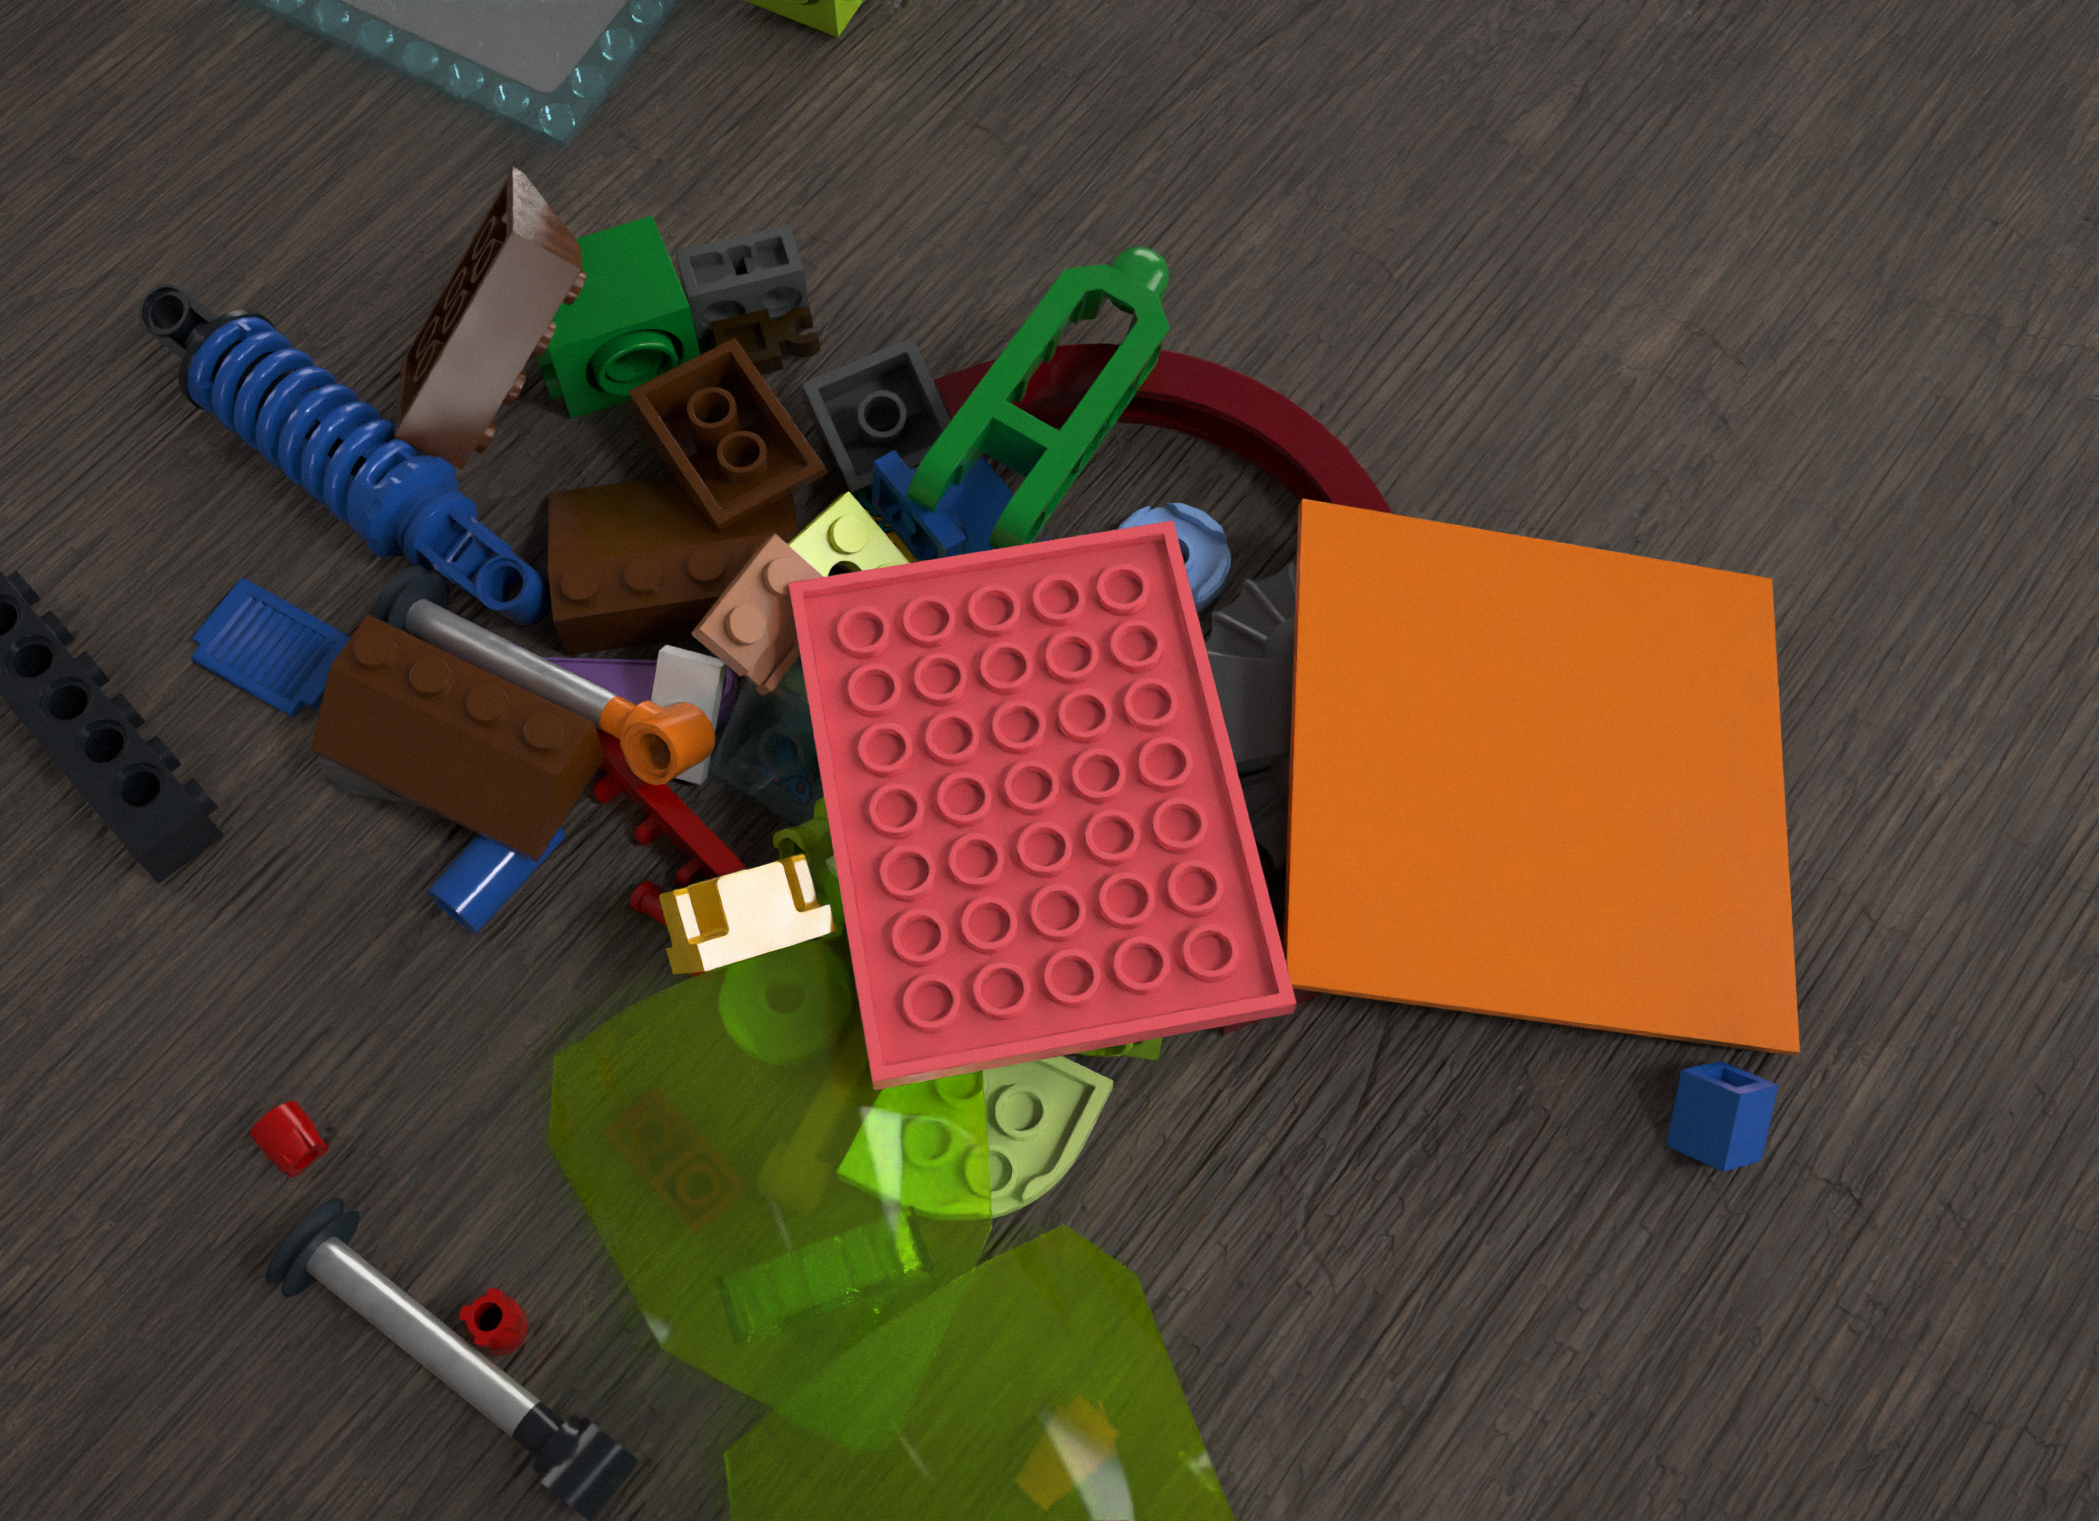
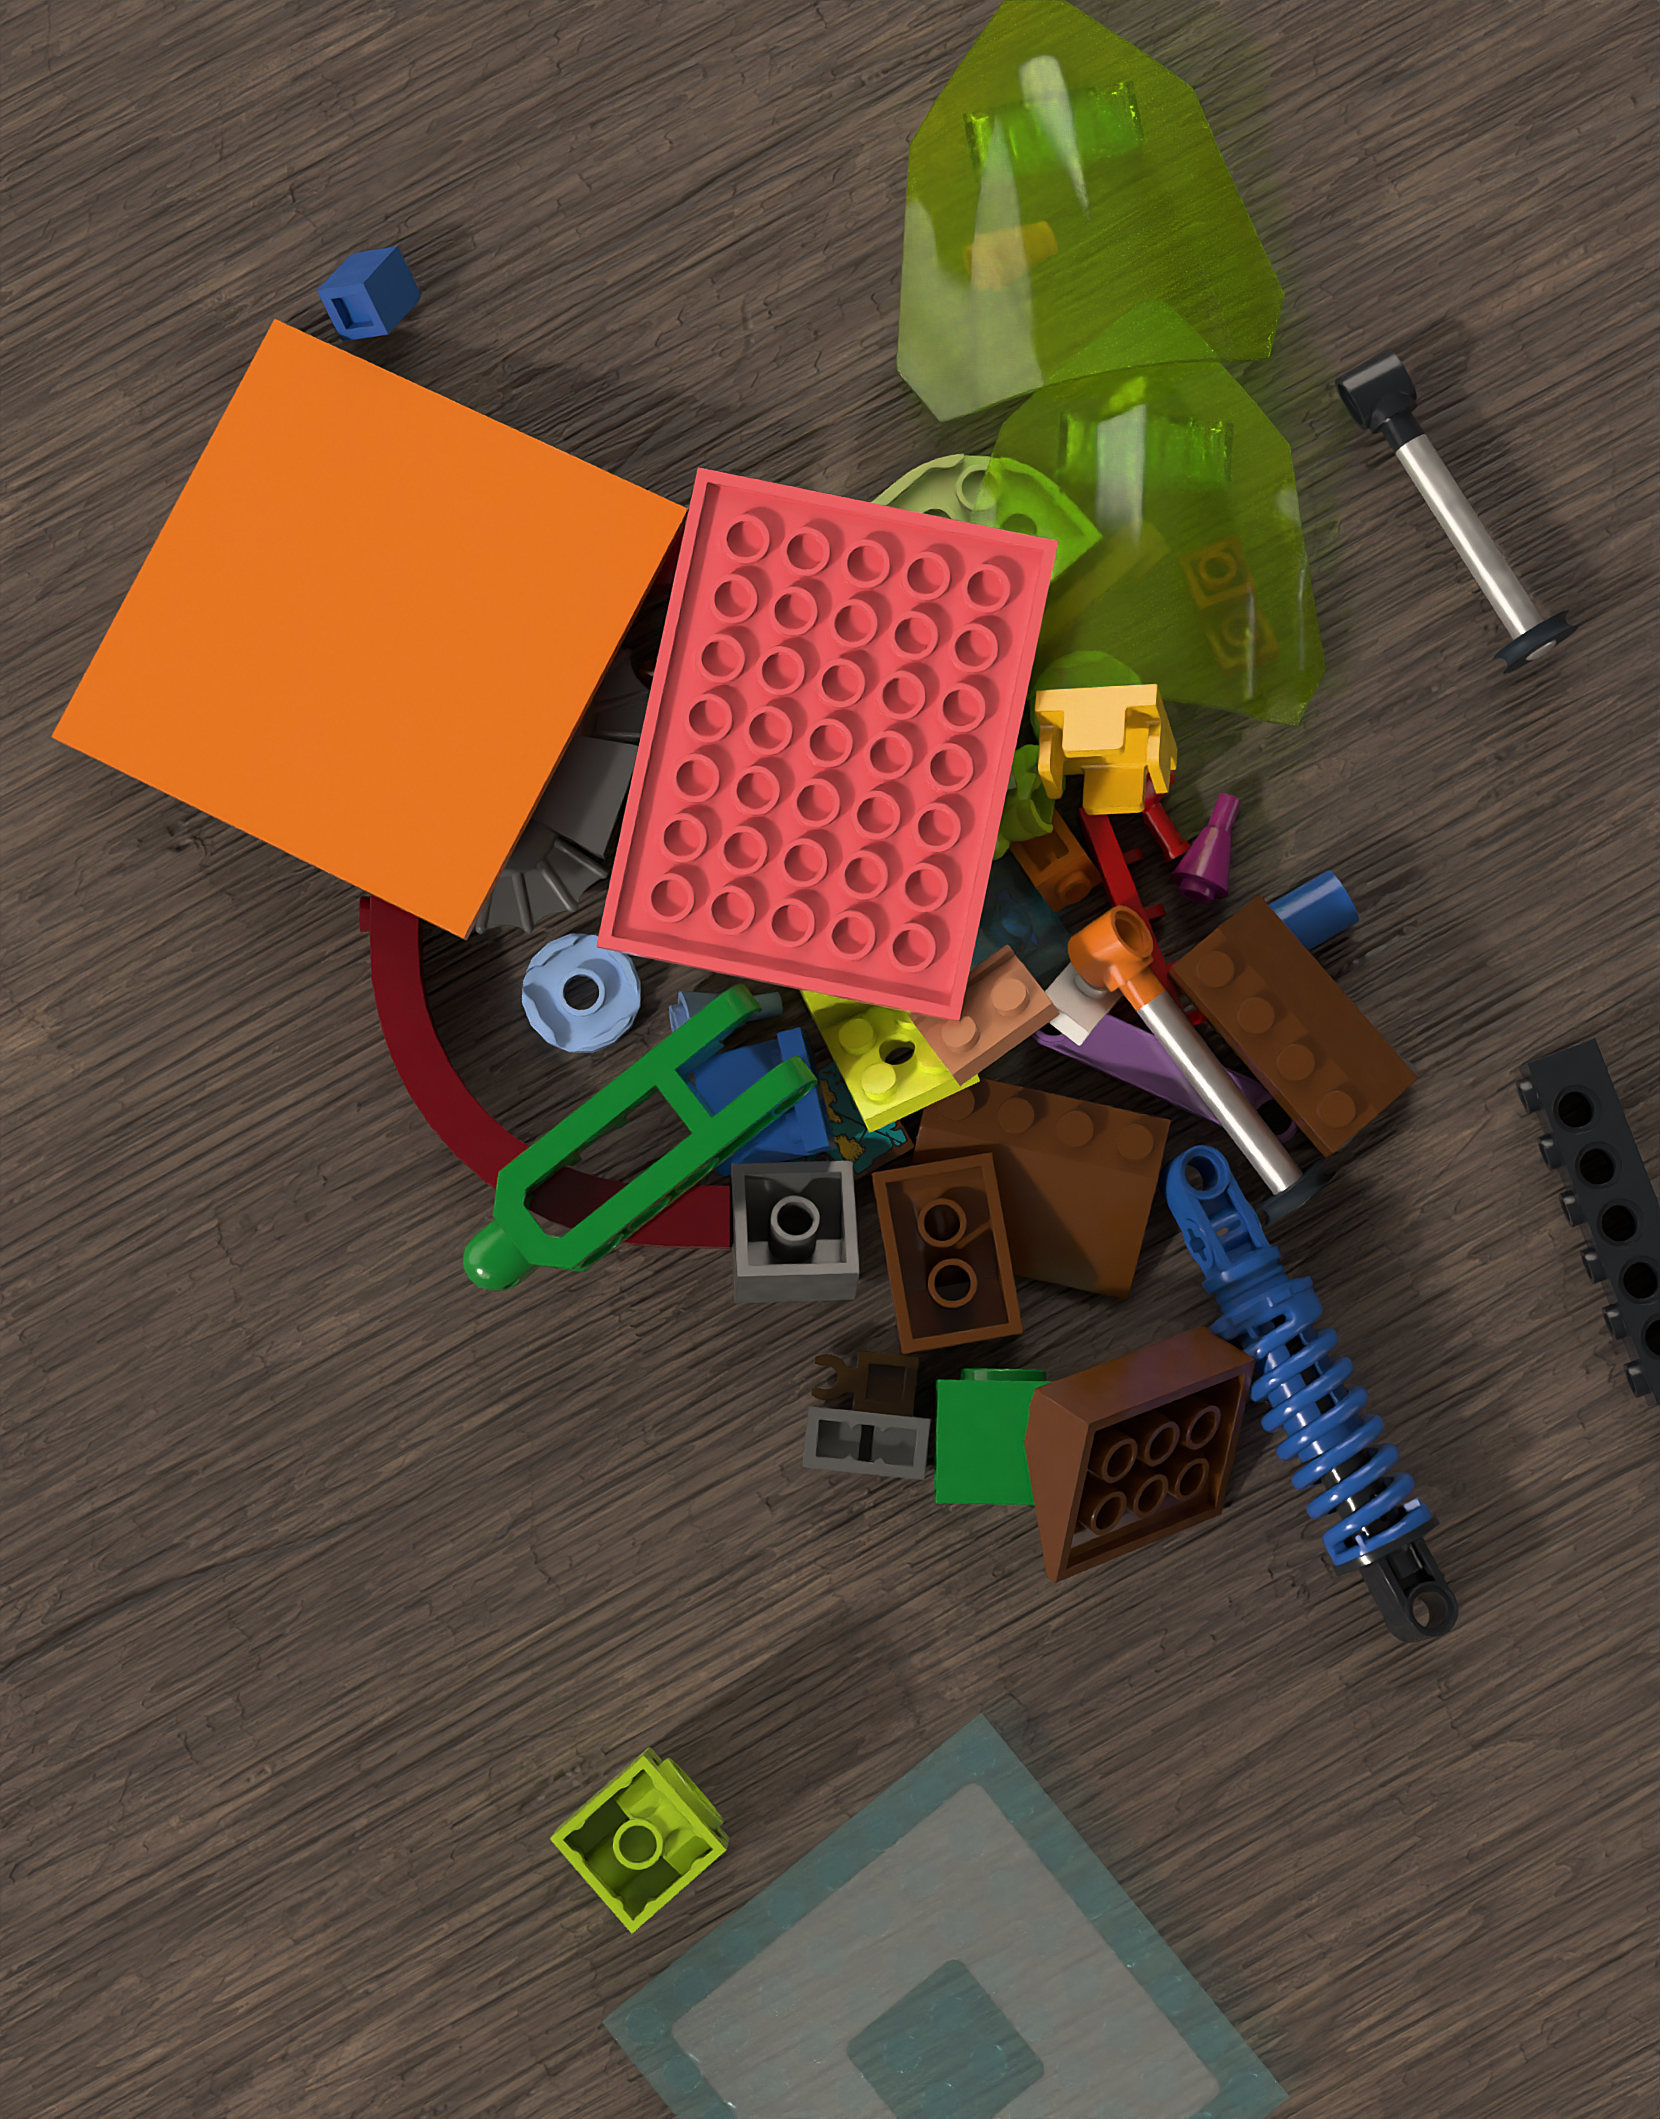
camera: 155 degrees left, 20 degrees up
(269, 648) = (1427, 1237): blue window -> none
(289, 1138) = (1532, 752): red hose -> none
(507, 1335) = (1405, 548): red hose -> none
(606, 891) = (1206, 865): none -> magenta cone
(752, 824) = (1057, 865): none -> orange bracket

